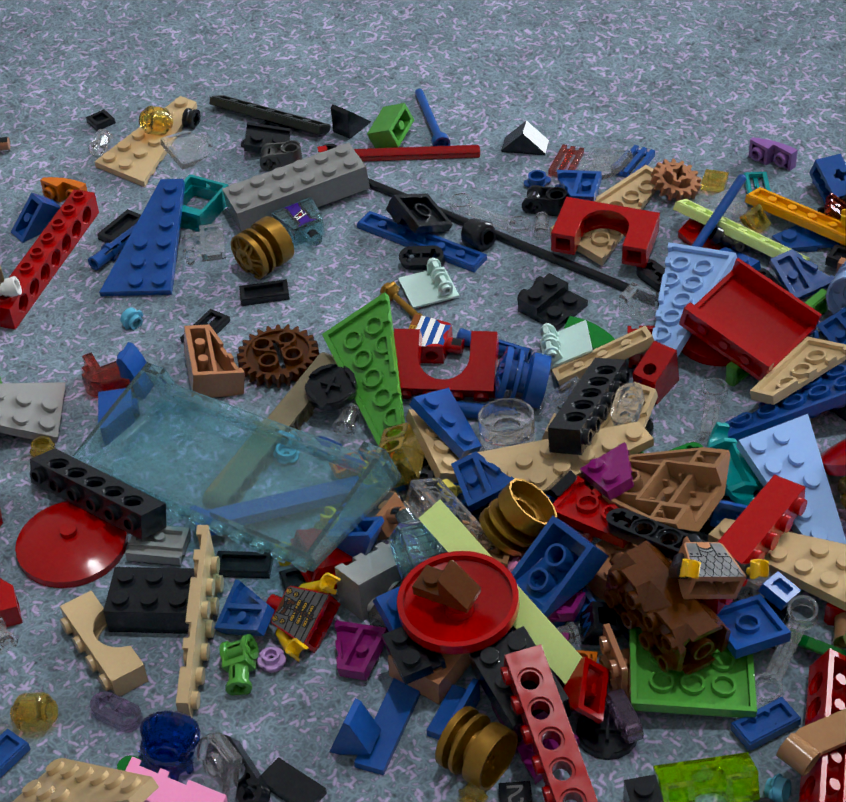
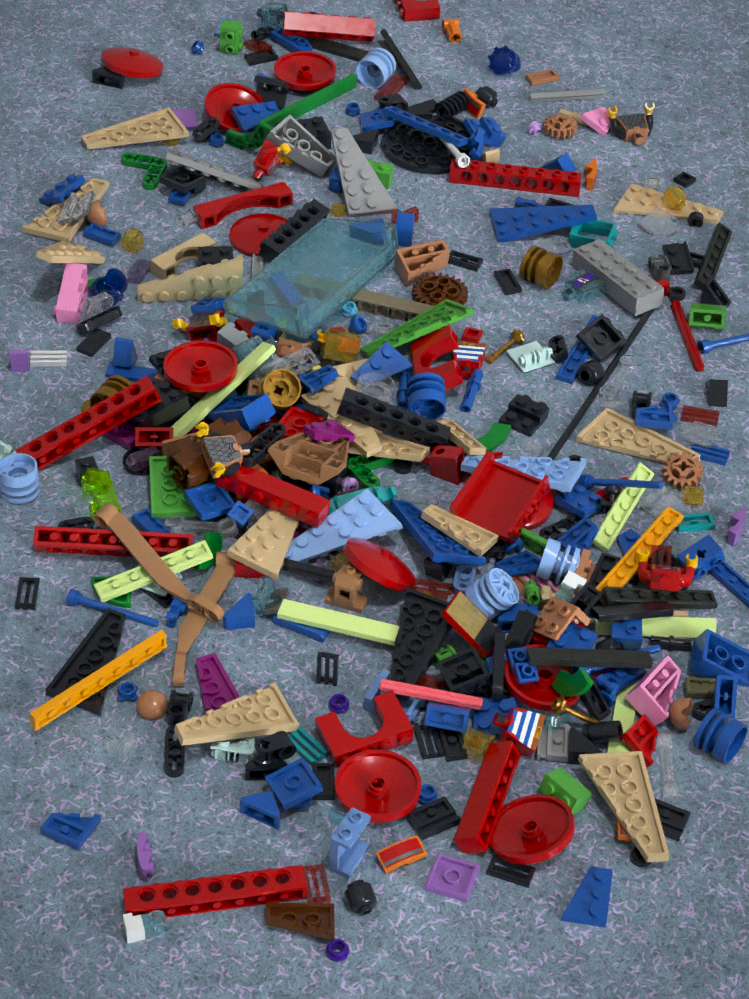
camera: 75 degrees right, 0 degrees up
(131, 318) = (465, 226): medium azure plate -> none
(238, 660) = (173, 309): bright green connector -> none
(331, 387) = (400, 312): black tile -> none
(447, 586) = (202, 355): reddish brown slope -> none
(565, 344) = (475, 418): light aqua hinge -> none
(582, 216) = (600, 447): red arch -> none
(627, 404) = (398, 440): clear plate -> none
(755, 219) = (645, 516): clear yellow plate -> none

